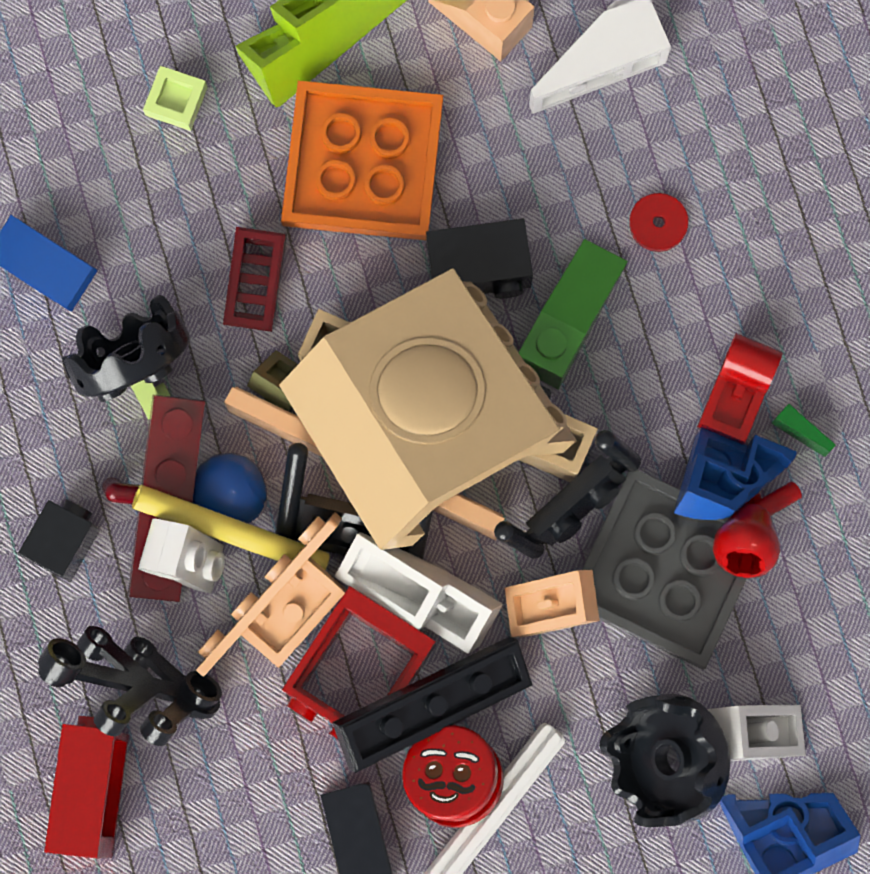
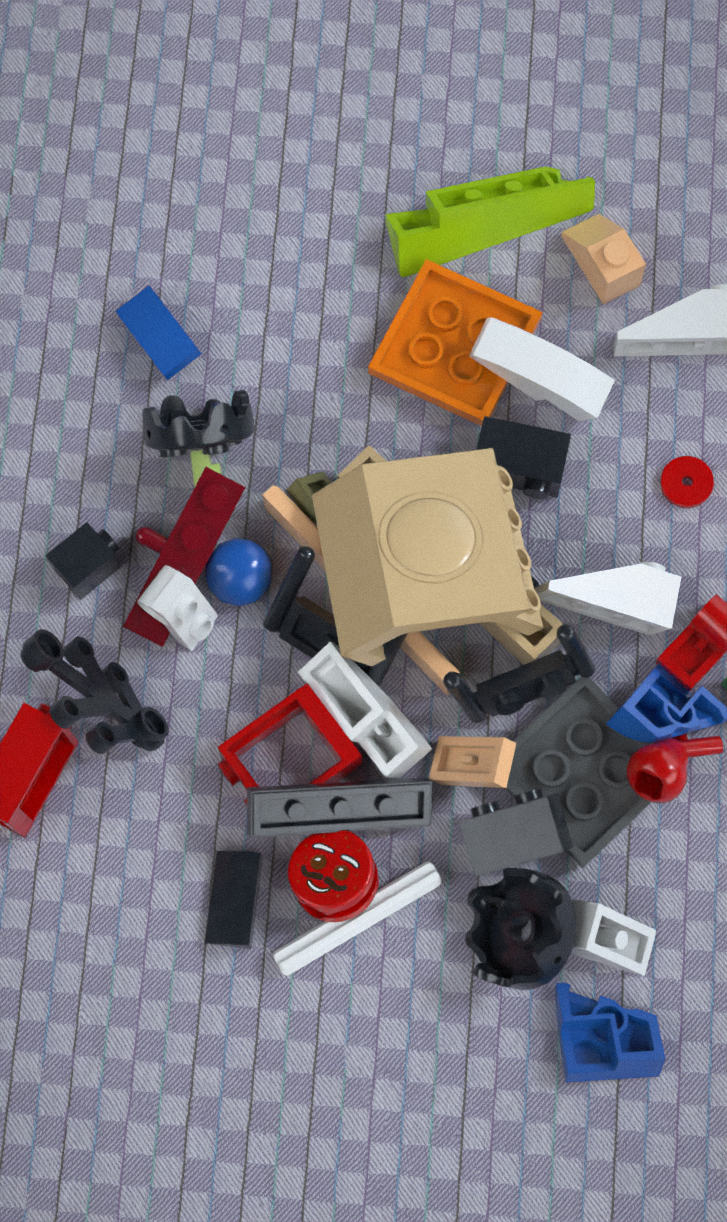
camera: 25 degrees right, 5 degrees down
(175, 98) = (320, 239): yellowish green plate -> none
(220, 526) = (228, 602): light yellow piece -> none
(257, 237) = (322, 385): dark red slope -> none
(287, 609) = (249, 682): light nougat bracket -> none
(466, 158) = (542, 369): none -> white slope
(571, 312) = (582, 528): bright green slope -> none
(624, 661) = (515, 833): none -> brick
(649, 369) = (630, 596): none -> white slope

